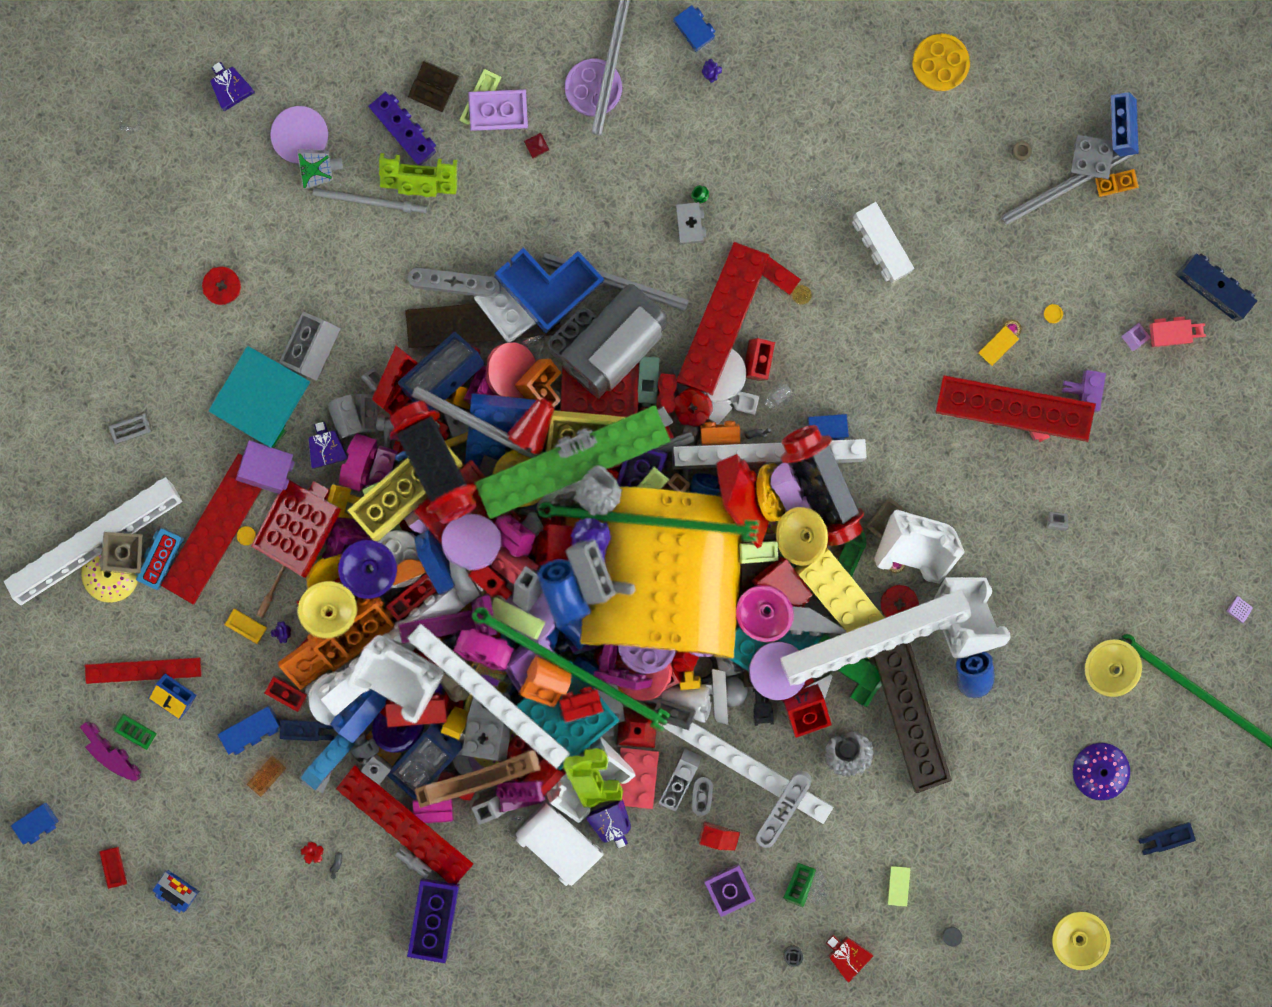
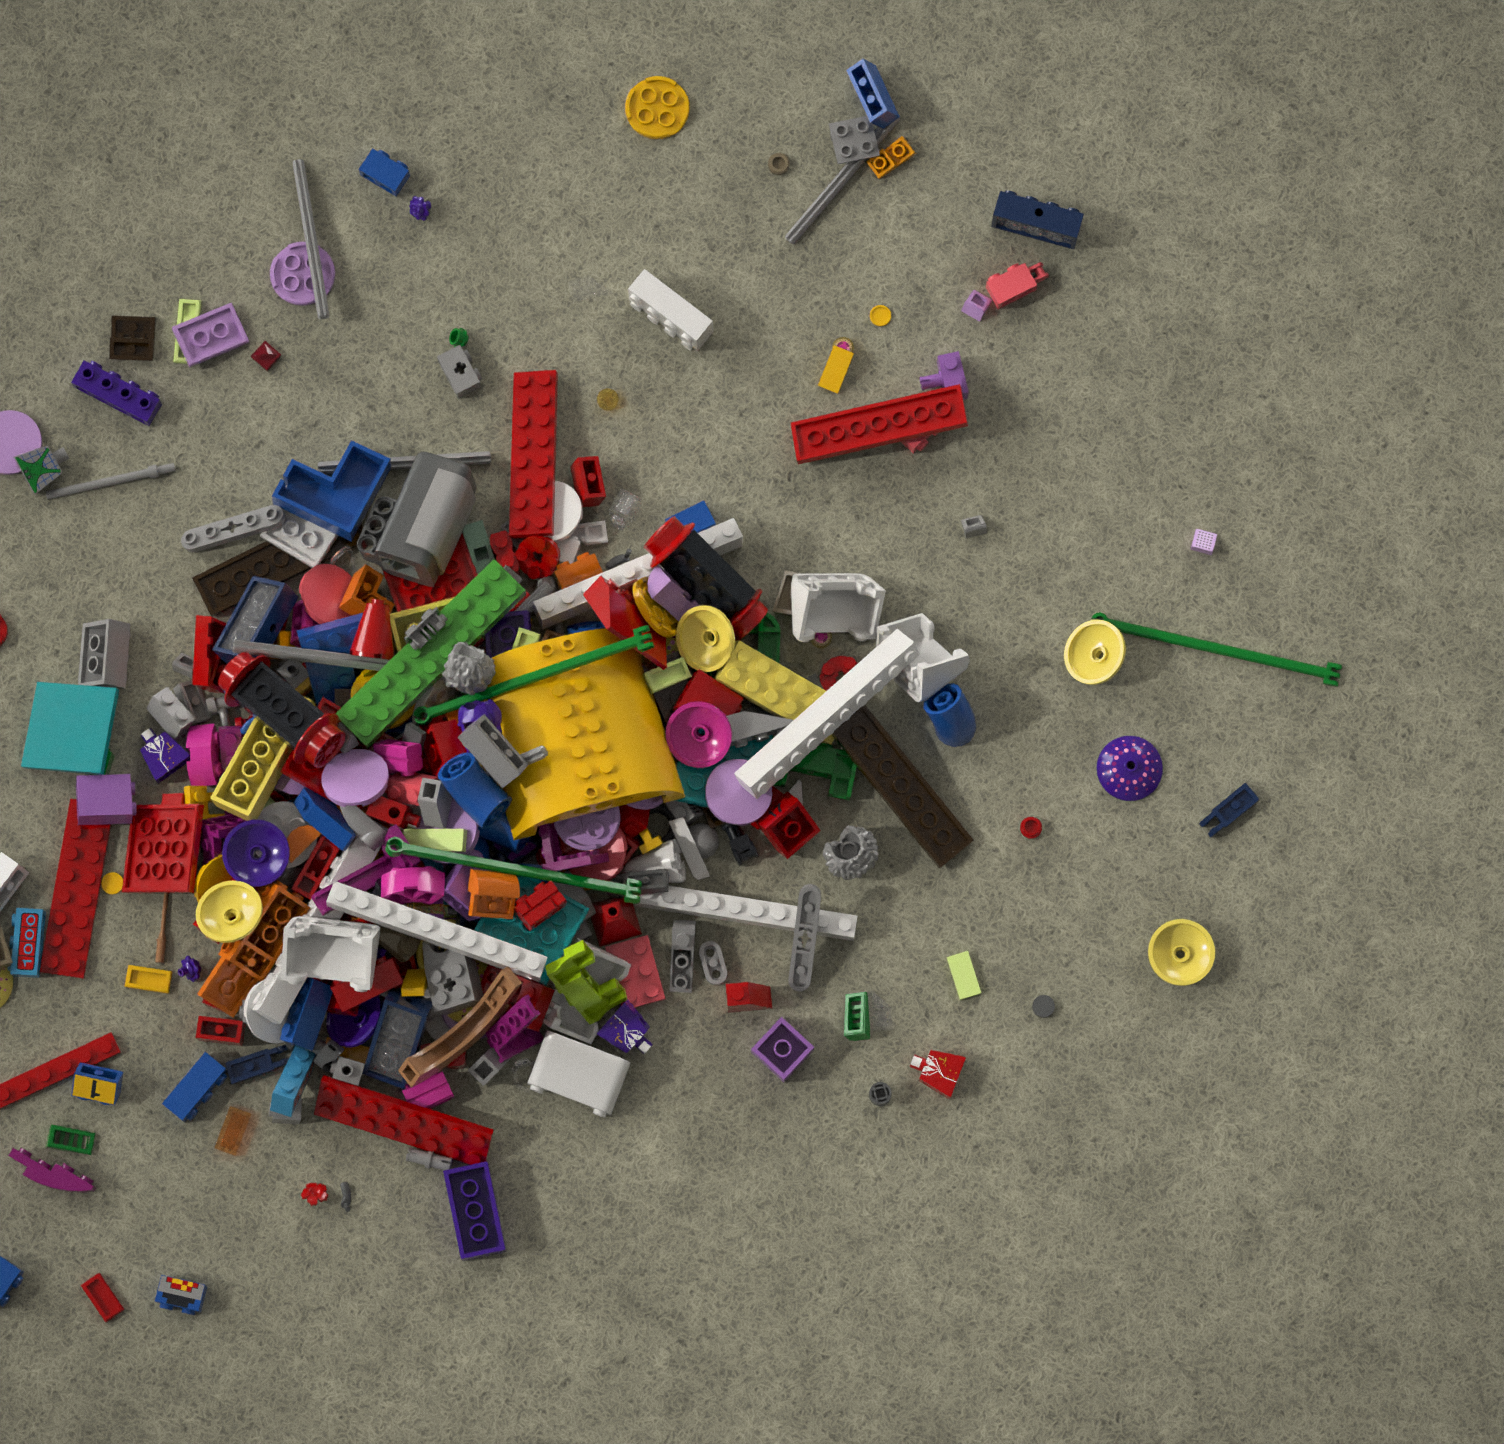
camera: 20 degrees left, 10 degrees down
(418, 179) = (153, 437): lime bracket -> none
(480, 508) = (350, 740): none -> light grey slope
(780, 276) = (577, 389): red tile -> none
(1002, 788) = (1031, 827): none -> red plate

